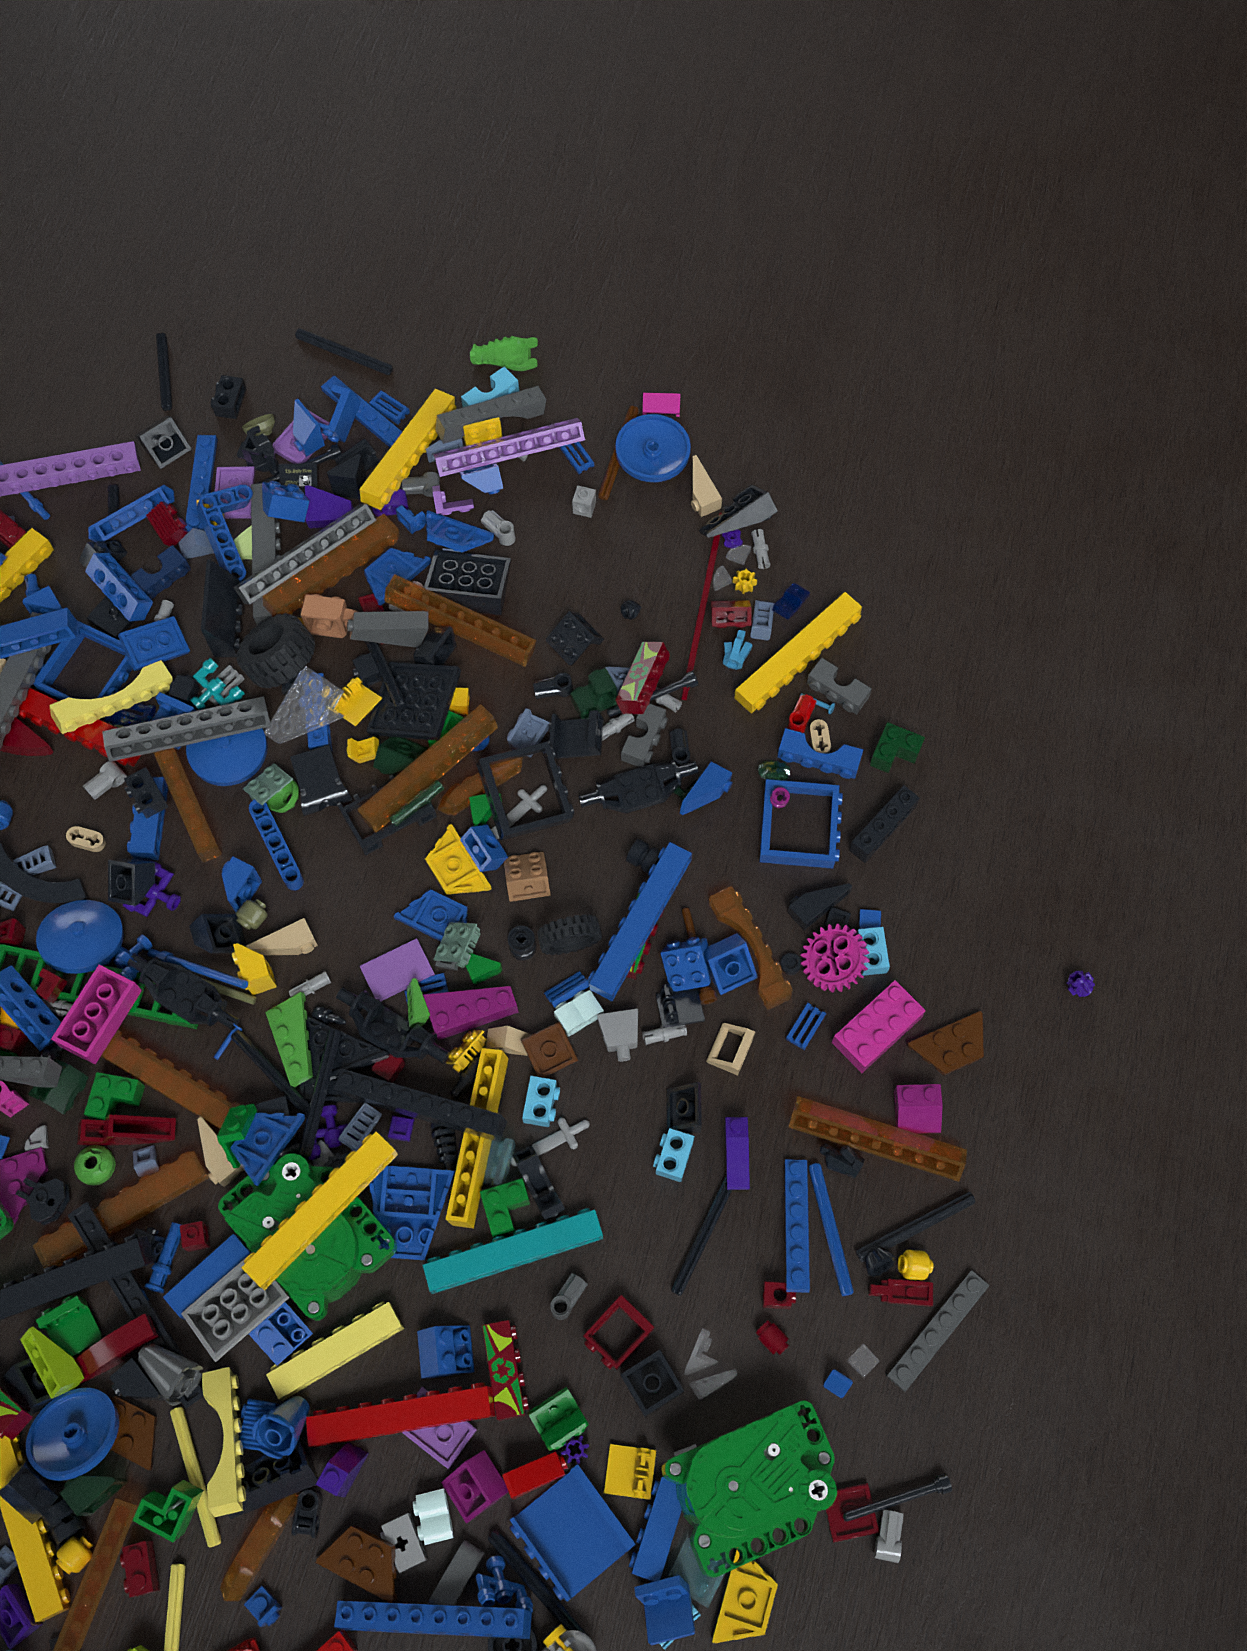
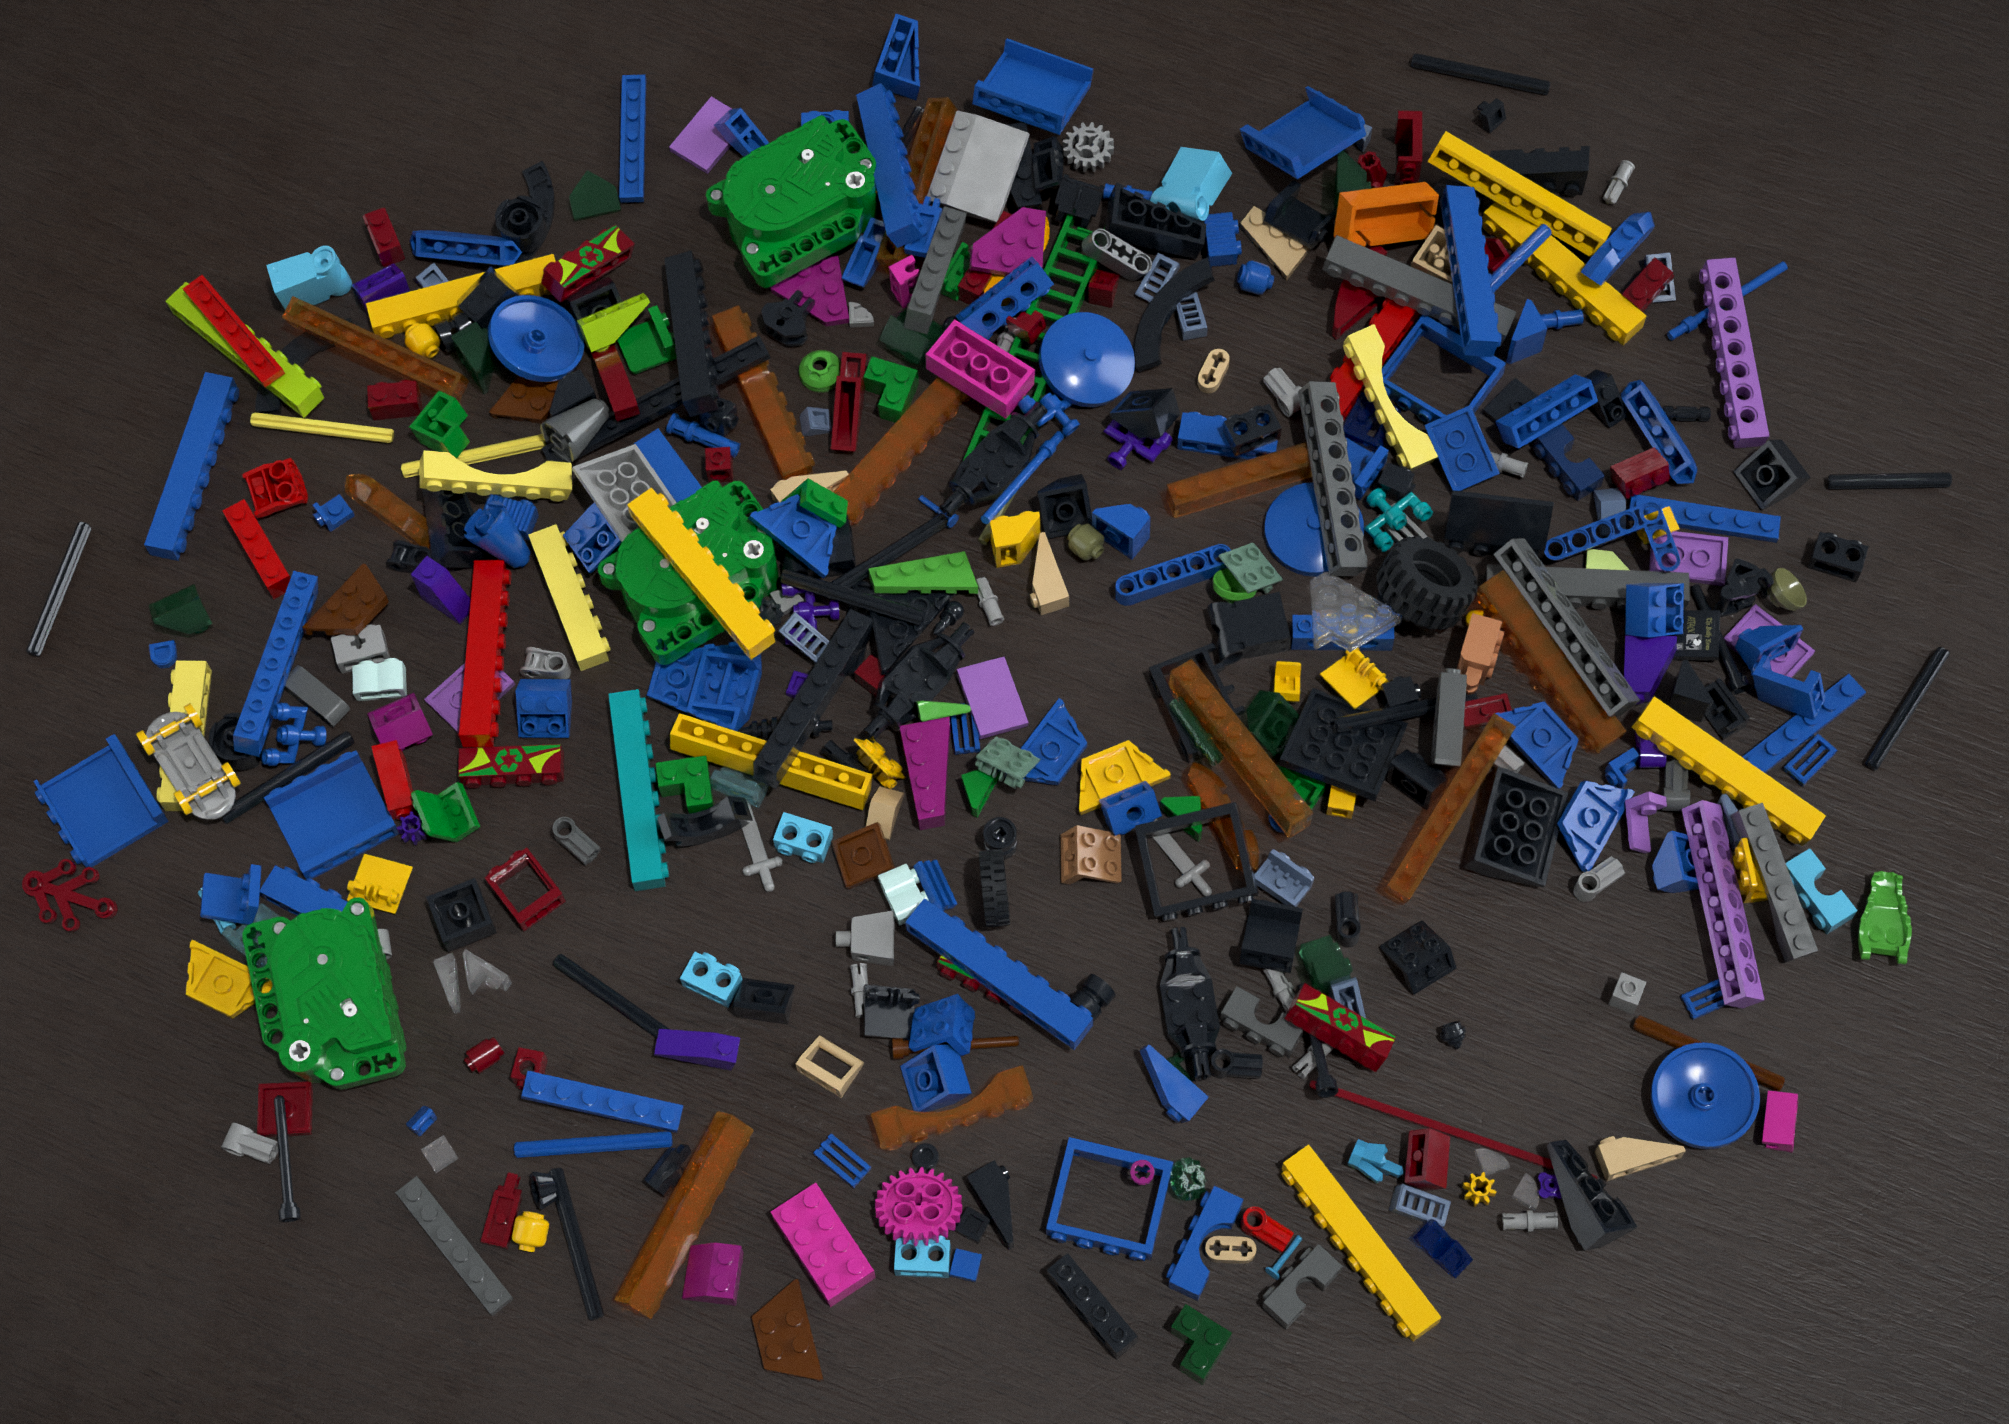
camera: 100 degrees right, 0 degrees up
(403, 1361) = (540, 664): none -> light grey piece

